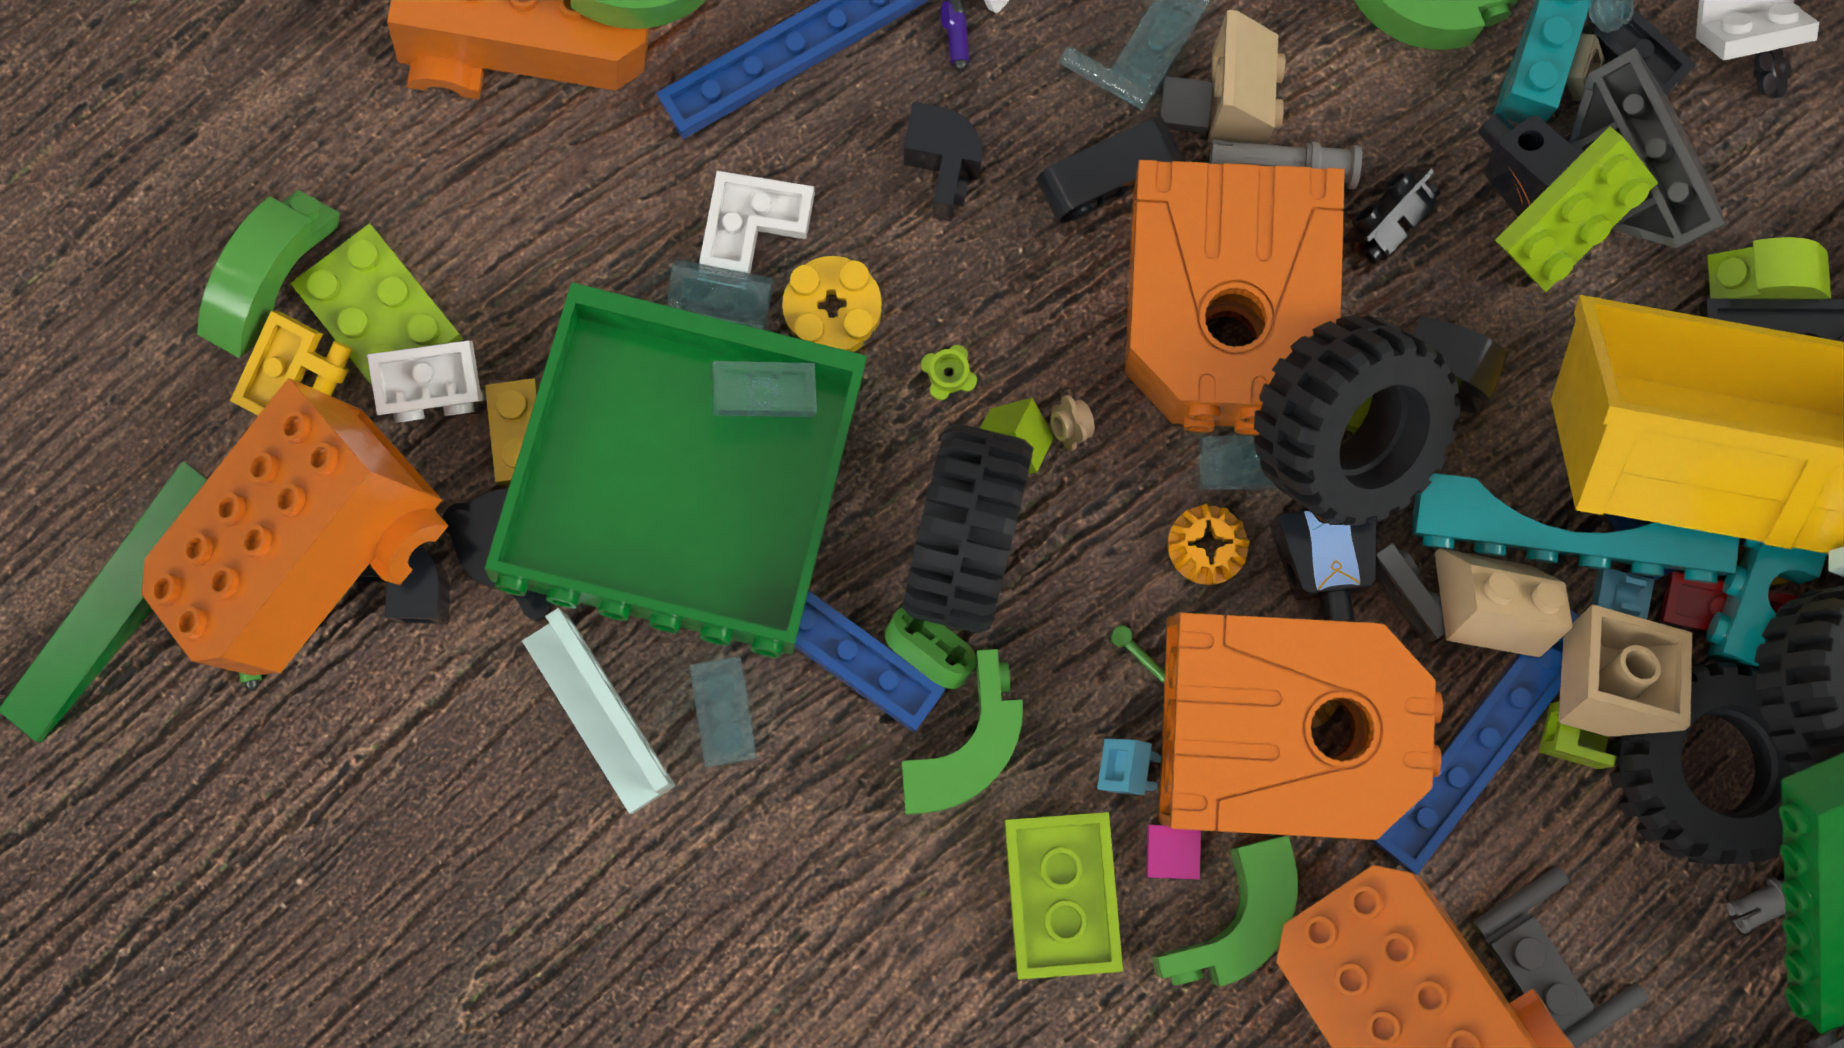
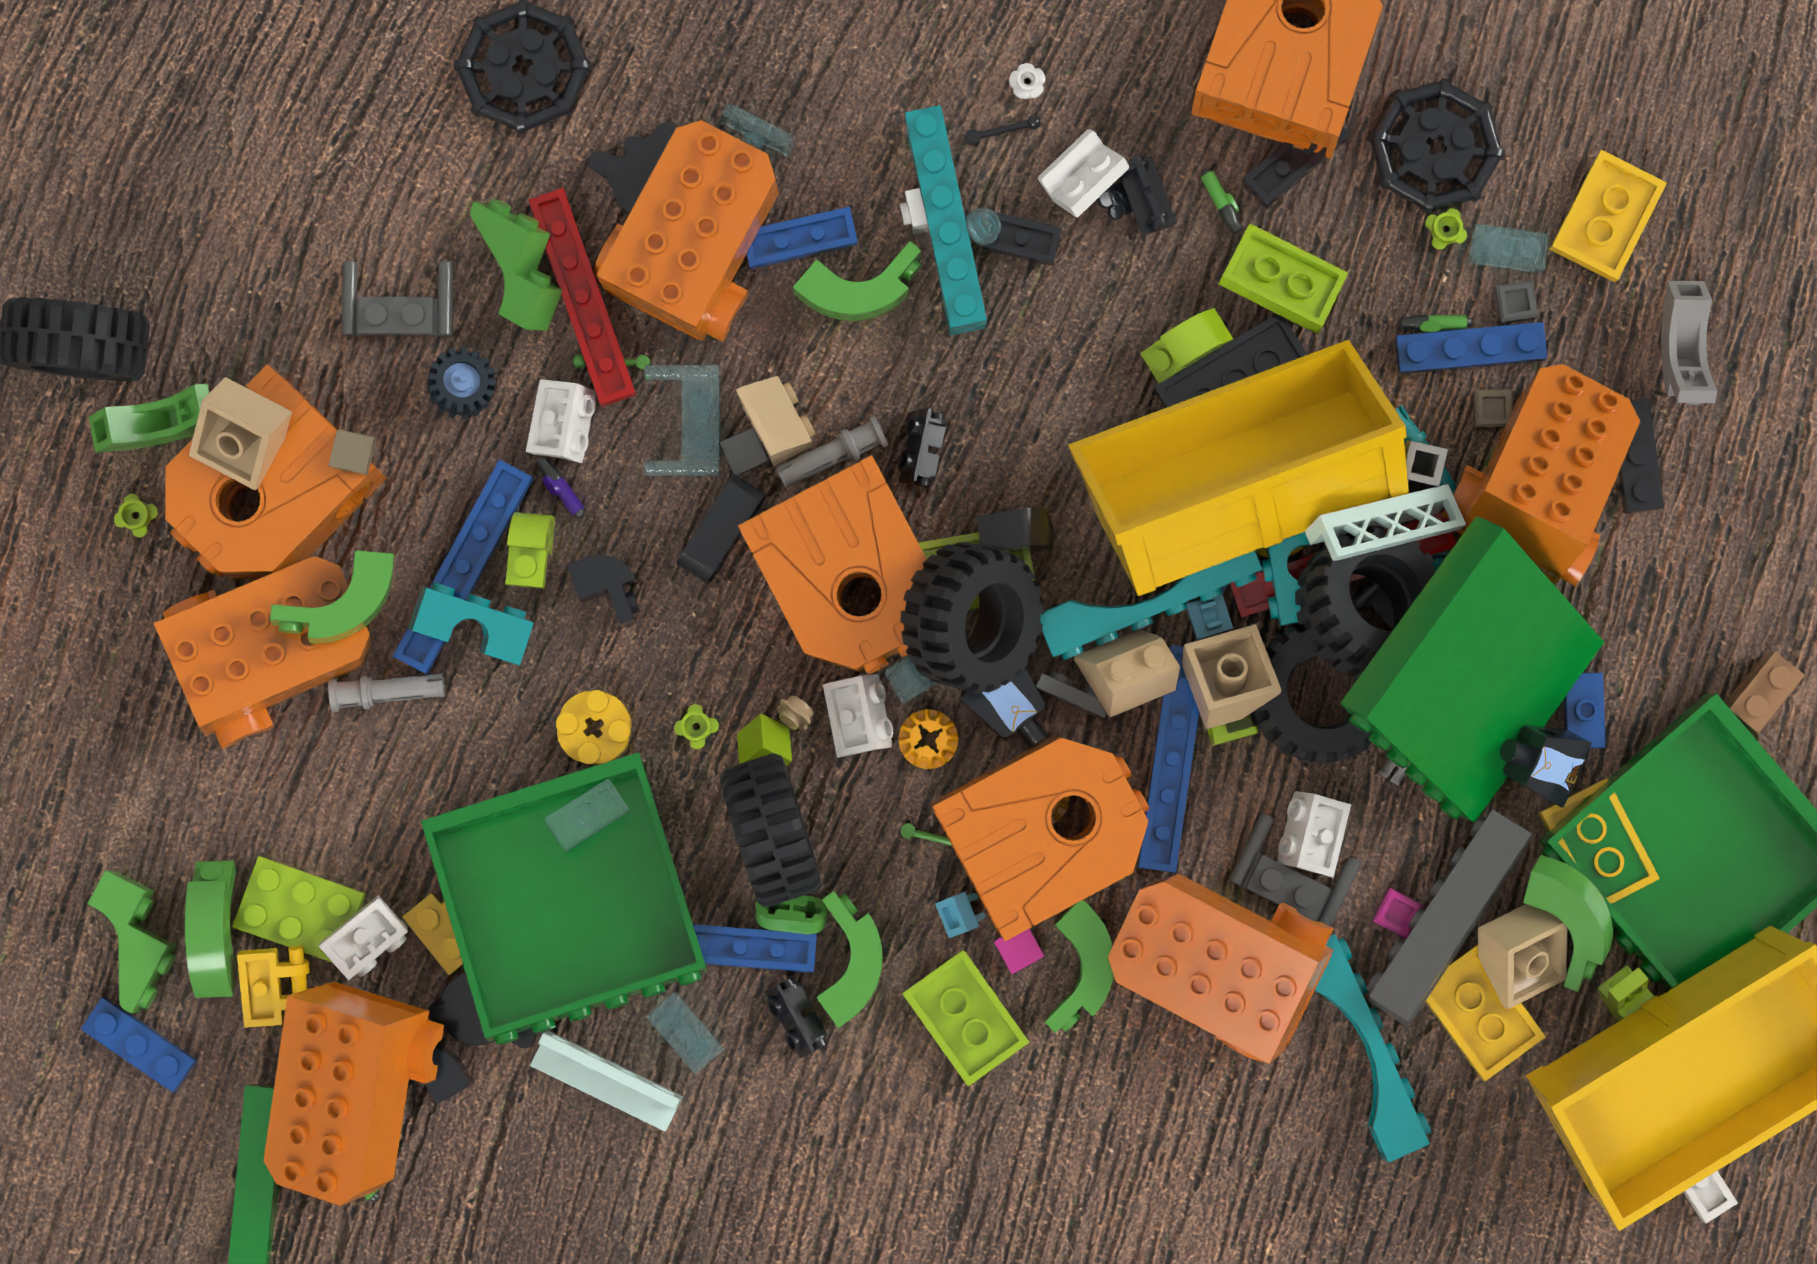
camera: 30 degrees left, 5 degrees up
(105, 352) = (139, 1044): none -> blue plate
(170, 251) = (141, 952): none -> bright green arch
(604, 118) = (368, 691): none -> light grey pin
(720, 293) = (517, 766): clear light blue plate -> none
(742, 66) = (503, 632): none -> teal arch
(748, 206) = (497, 699): white plate -> none
(861, 748) = (785, 1004): none -> black hinge
(883, 61) = (529, 546): none -> lime brick
(1143, 467) = (858, 715): none -> white bracket
(1524, 158) = (1006, 372): black torso -> none
(1578, 209) = (1036, 386): lime plate -> none
(1586, 59) = (991, 273): dark tan tile -> none
(1610, 927) = (1313, 833): none -> white bracket
(1635, 106) = (1062, 315): dark grey wedge -> none
(1812, 86) = (1147, 195): none -> black hinge

